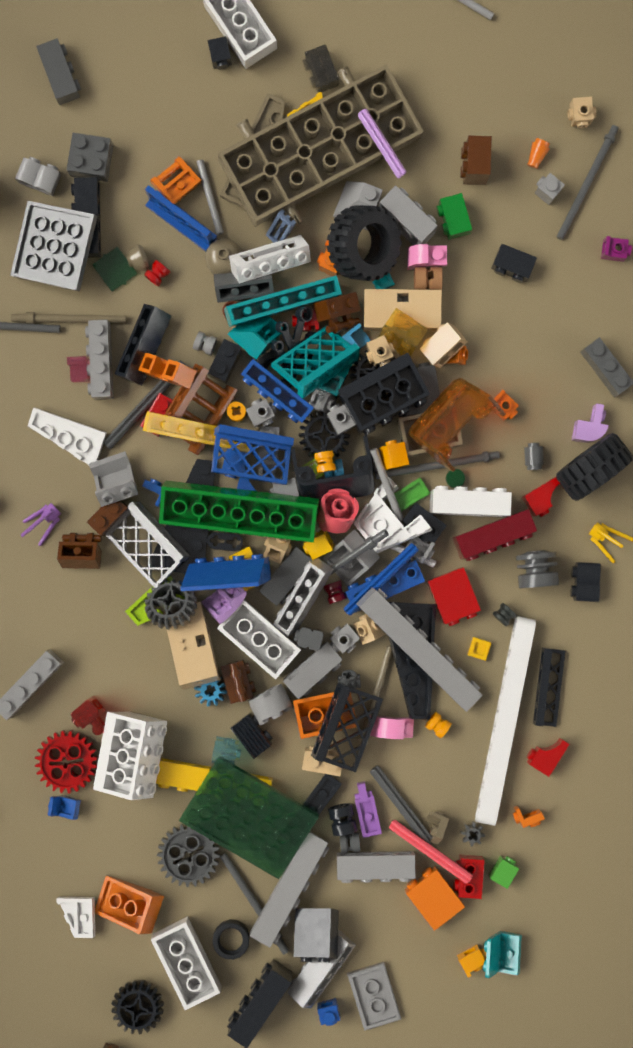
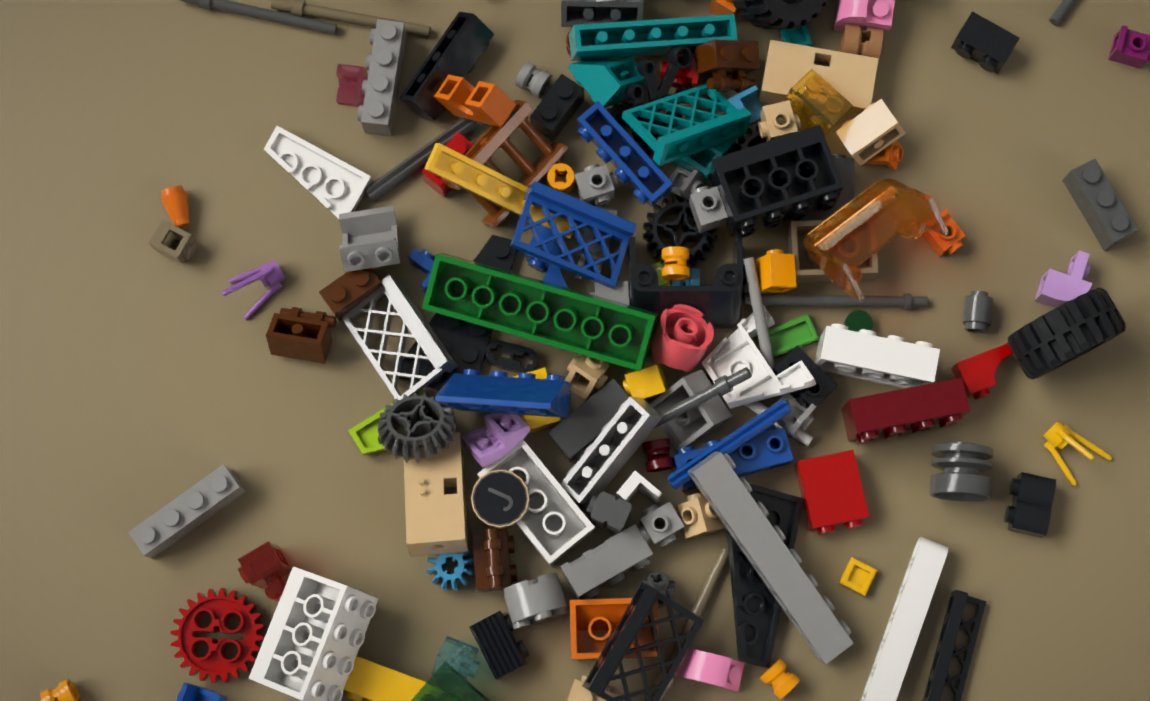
camera: 15 degrees right, 10 degrees down
(235, 643) = (500, 498): none -> black tile
(321, 617) = (635, 483): none -> white panel
(504, 614) = (902, 531): pearl dark grey wheel -> none

